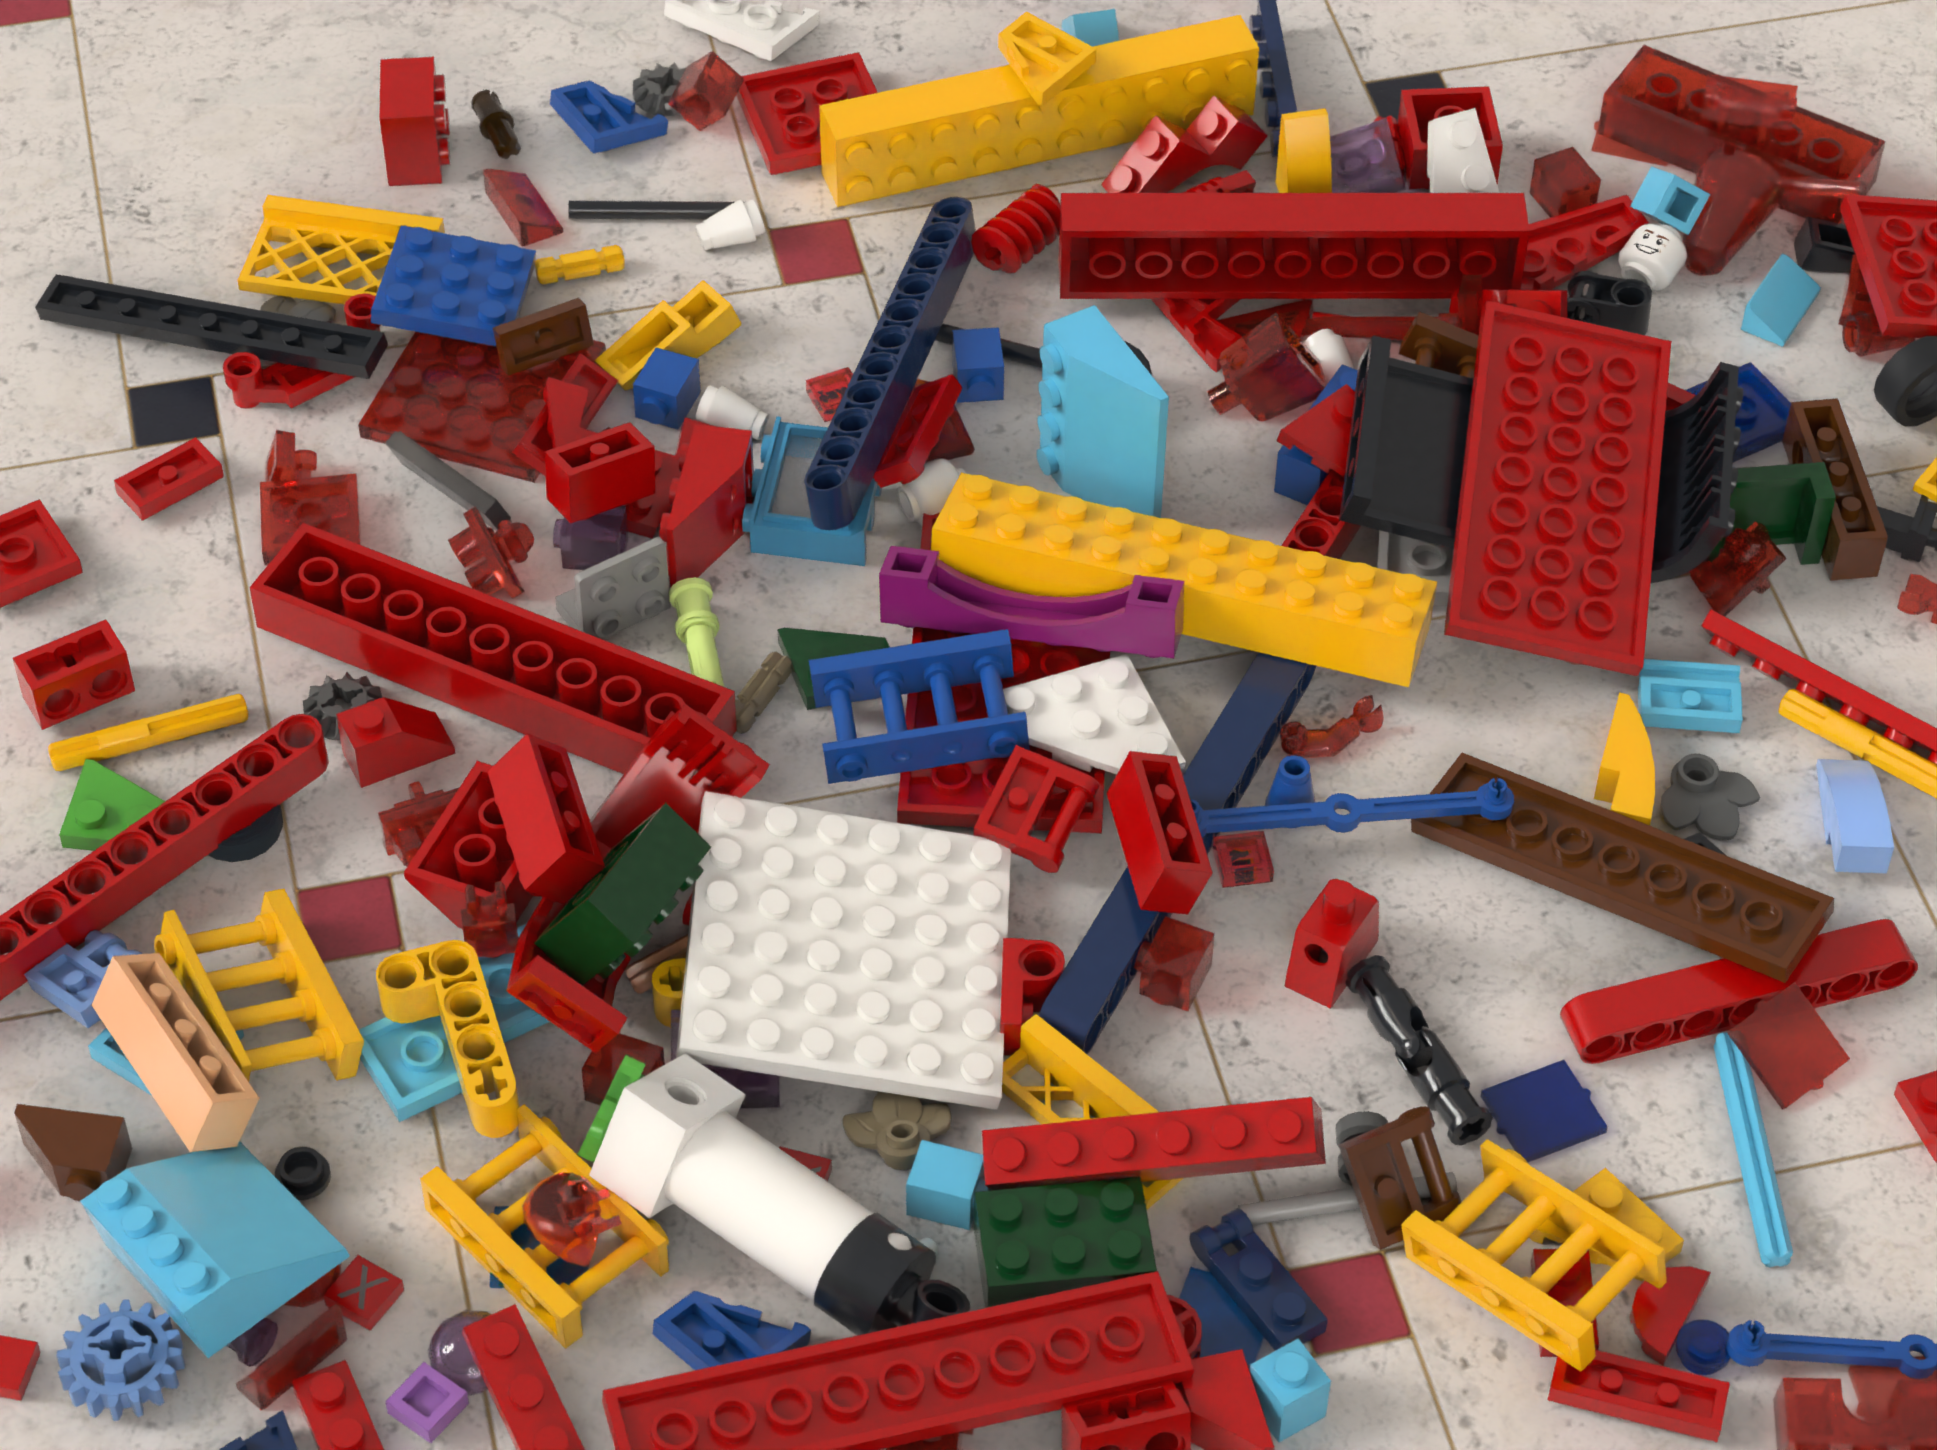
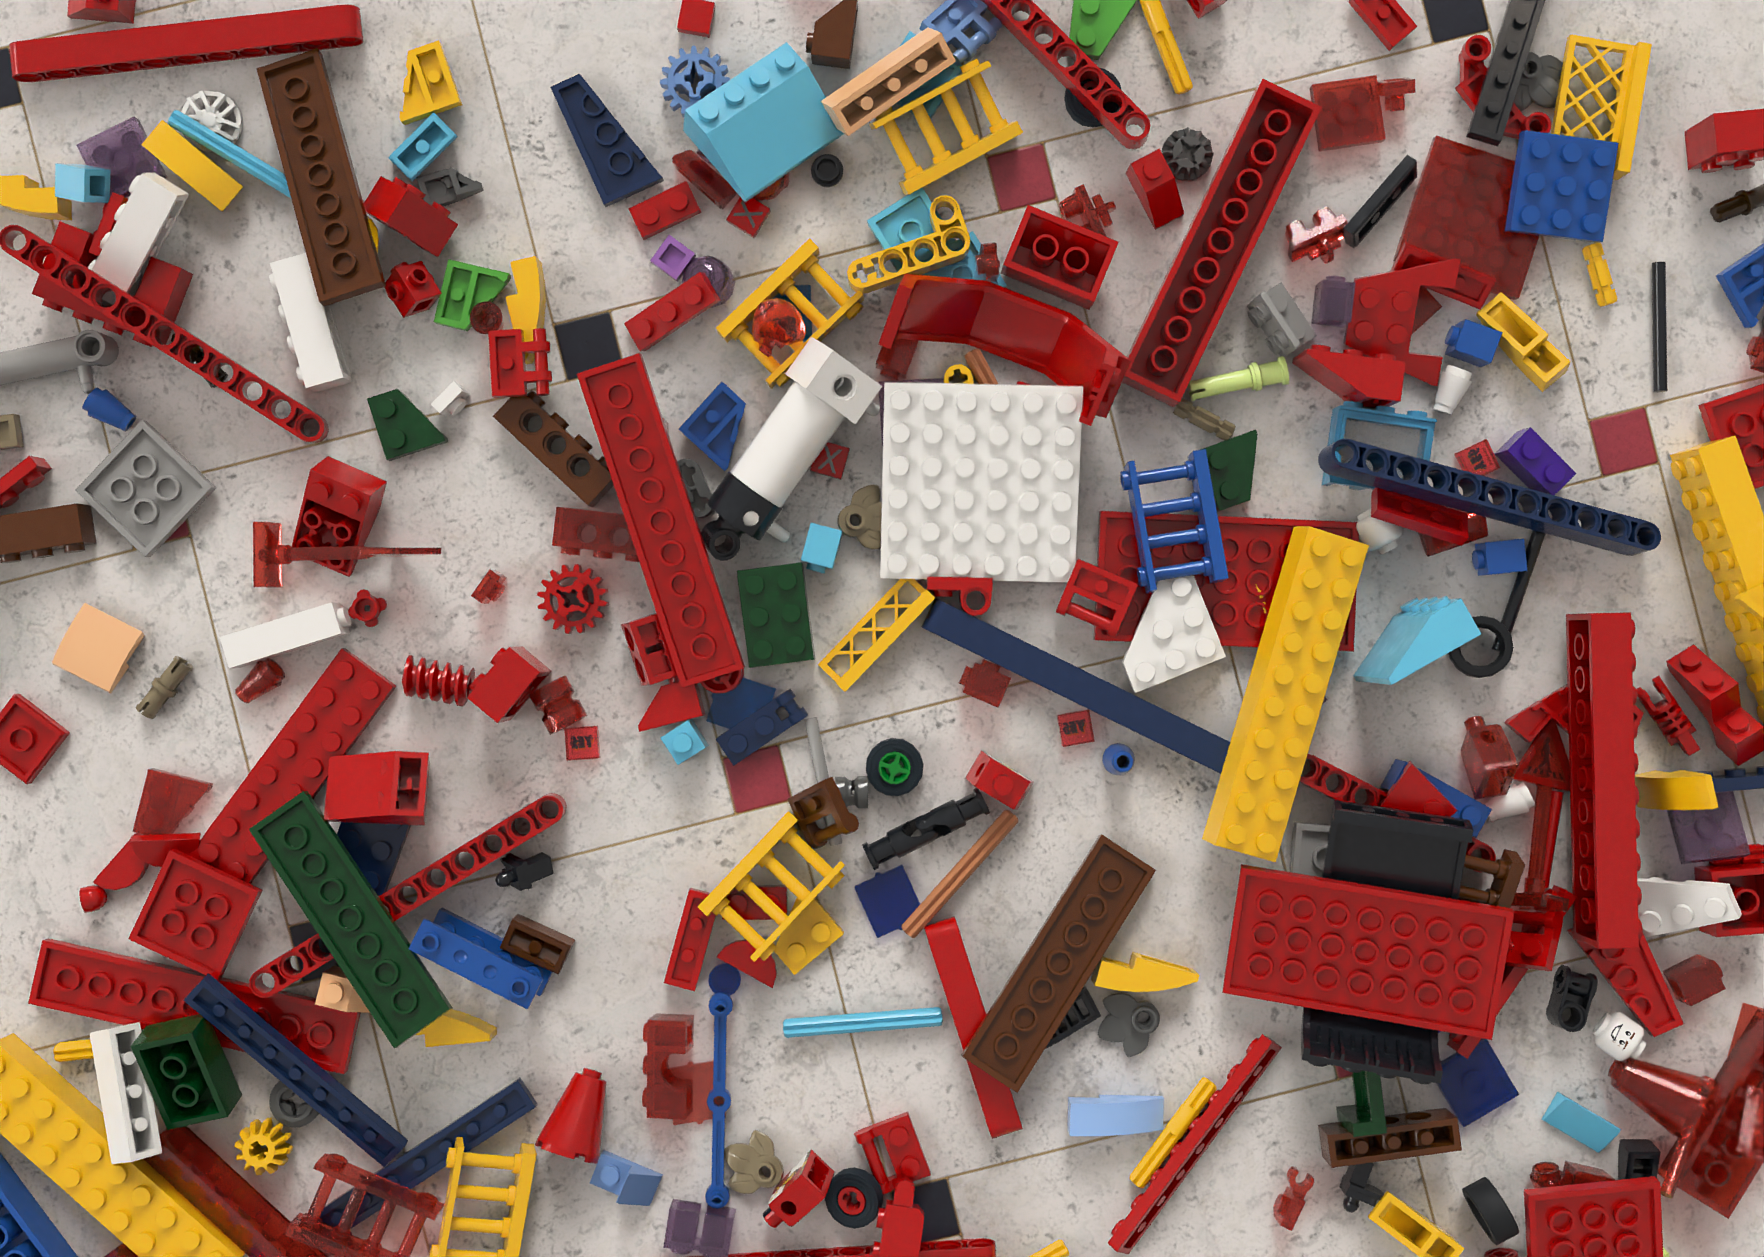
camera: 90 degrees right, 40 degrees up
(520, 206) = (1660, 229): clear red slope -> none
(543, 336) = (1508, 253): reddish brown plate -> none
(545, 819) = (1053, 287): red brick -> none
(600, 472) = (1363, 301): red brick -> none
(625, 897) = (999, 342): dark green brick -> none
(628, 1072) = (855, 348): bright green wing -> none
(731, 226) = (1639, 379): white cone -> none
(839, 325) = (1535, 462): none -> dark purple brick
(930, 594) = (1242, 657): magenta arch -> none
(1018, 231) = (1636, 586): red piece -> none
(1157, 1145) = (828, 668): red brick -> none
(1159, 833) = (1061, 674): red brick -> none
(1318, 1071) = (892, 778): none -> black wheel
(1331, 741) = (1170, 785): clear red arm -> none
(1490, 1007) = (959, 873): none -> nougat axle
(1491, 801) = (1107, 886): blue piece -> none
(1670, 200) = (1665, 1054): medium azure brick -> none
(1690, 696) = (1210, 1021): medium azure plate -> none
(1739, 569) = (1315, 1077): clear red hips -> none
(1788, 1045) = (930, 1052): clear red piece -> none

